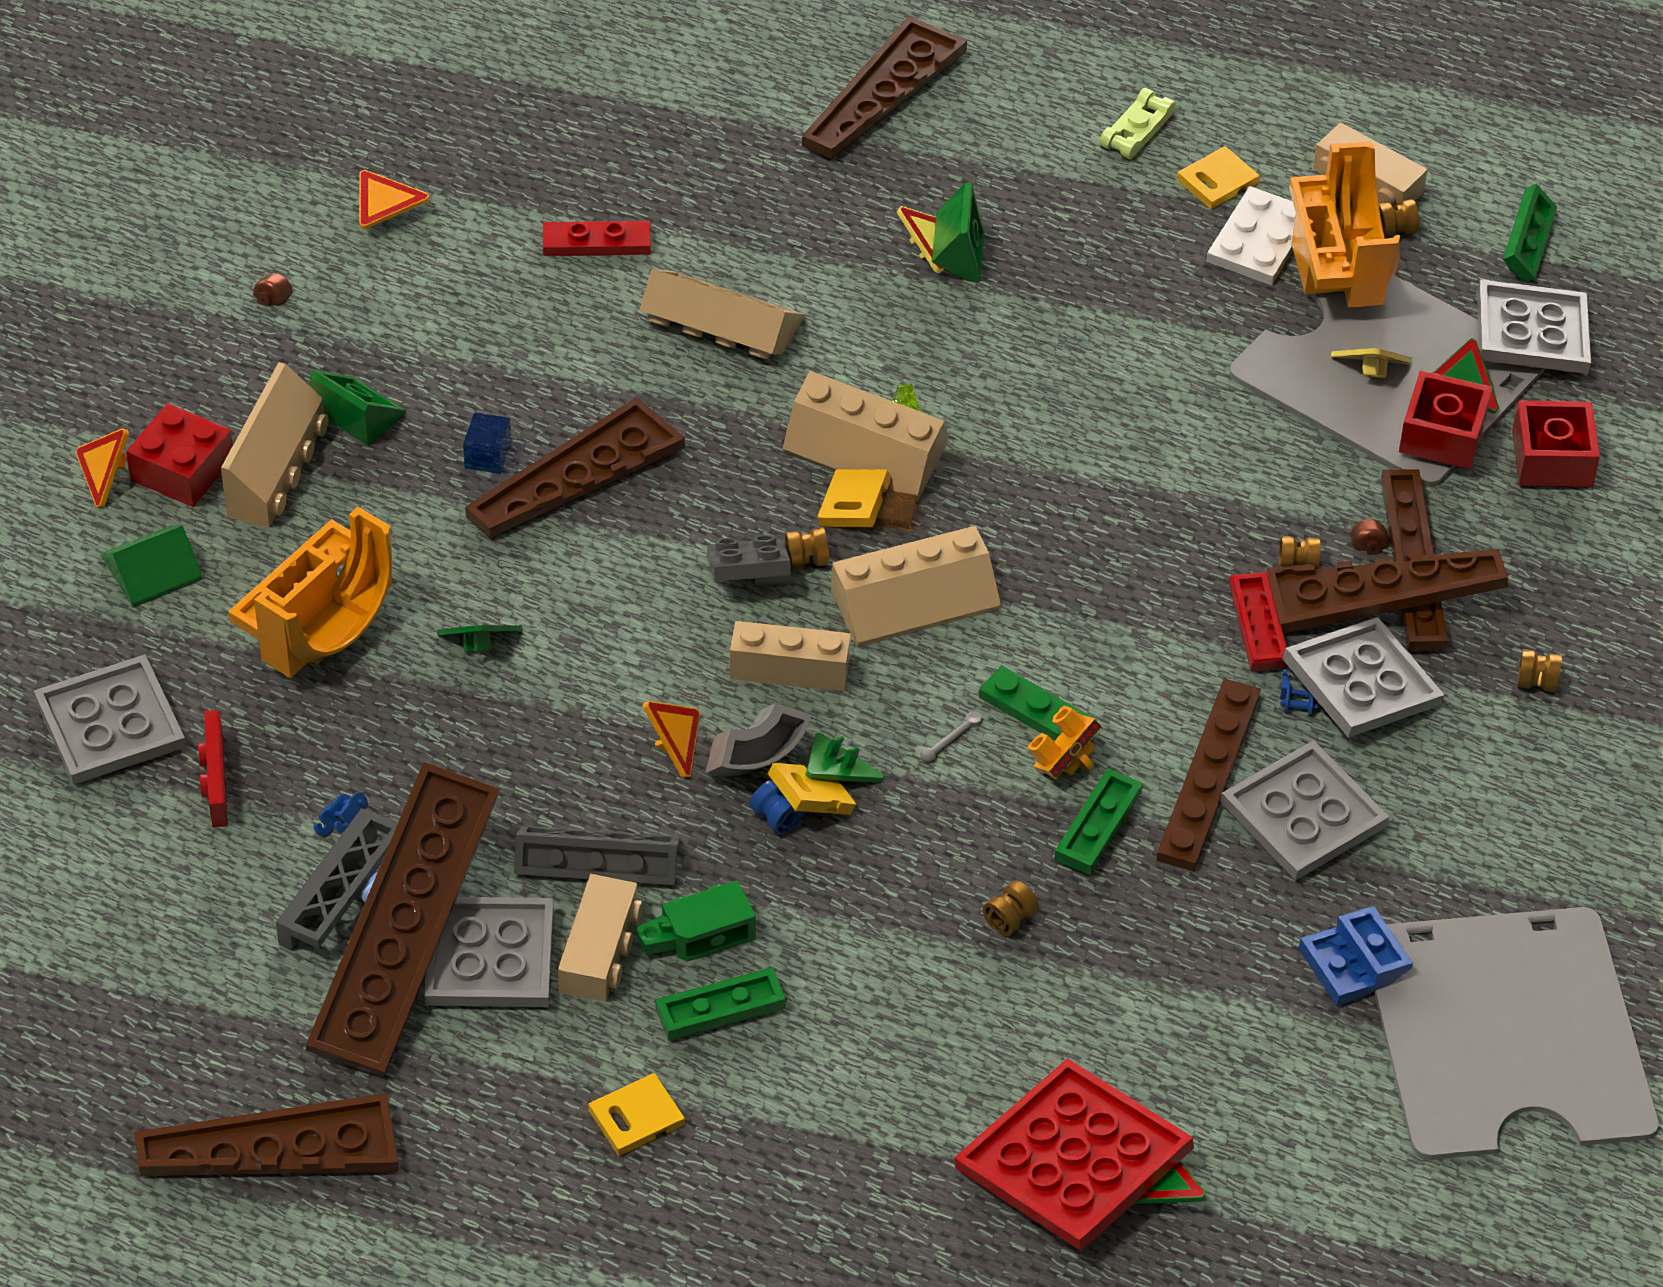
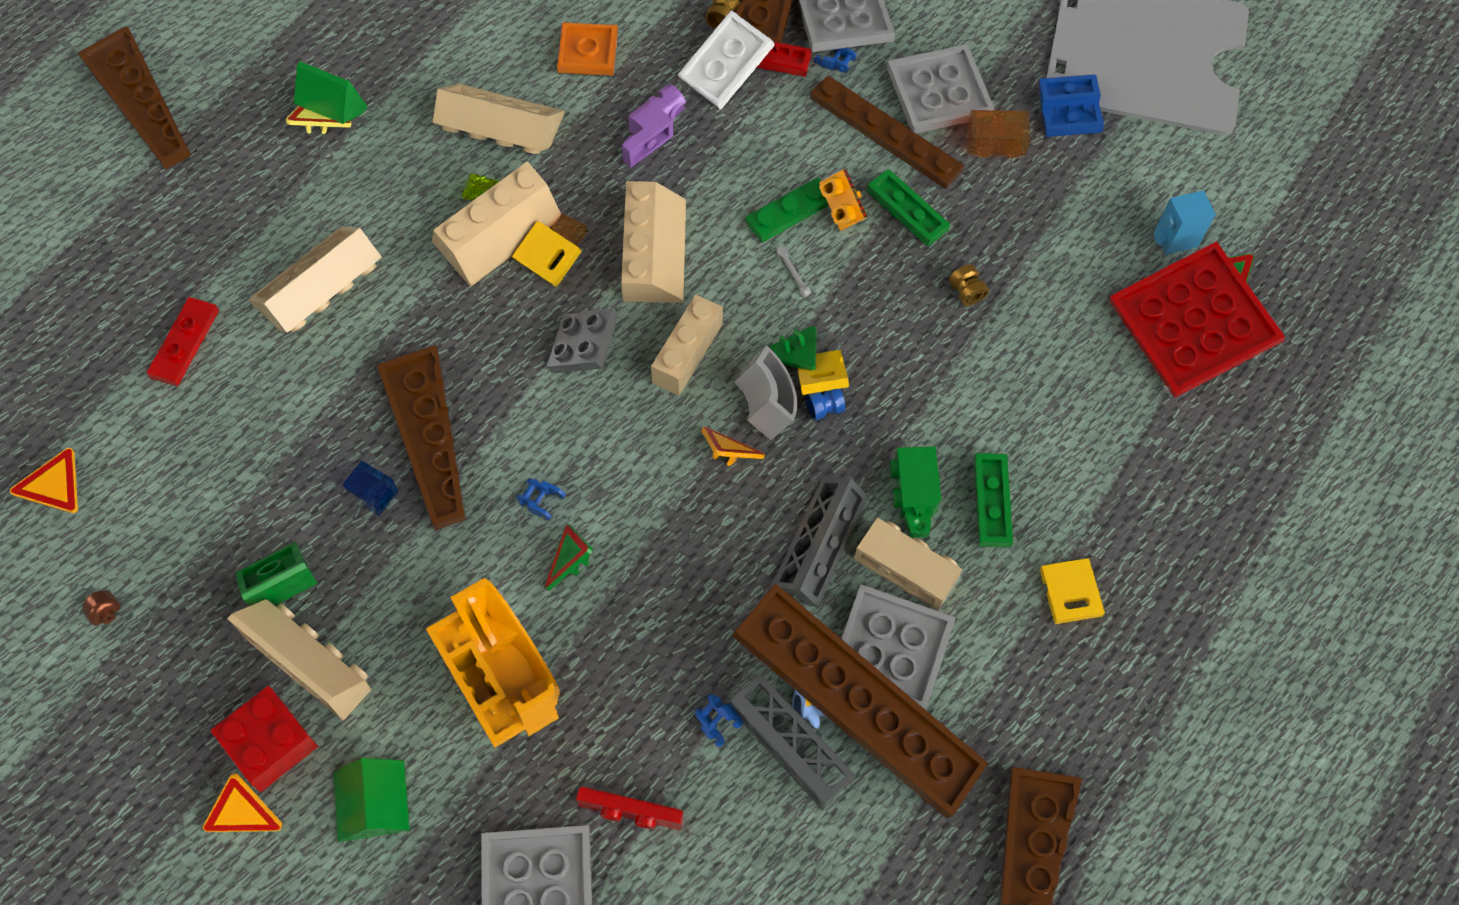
camera: 70 degrees left, 15 degrees up
(529, 587) = (544, 488): none -> blue piece
(807, 548) = (585, 296): pearl gold wheel -> none
(1021, 393) = (496, 117): none -> tan slope
(1085, 537) = (652, 124): none -> medium lavender plate
(1168, 446) = (587, 49): none -> orange plate
(1211, 1103) = (1184, 222): none -> dark azure brick
(1219, 576) = (726, 60): none -> white tile
(1262, 885) = (998, 133): none -> clear orange brick

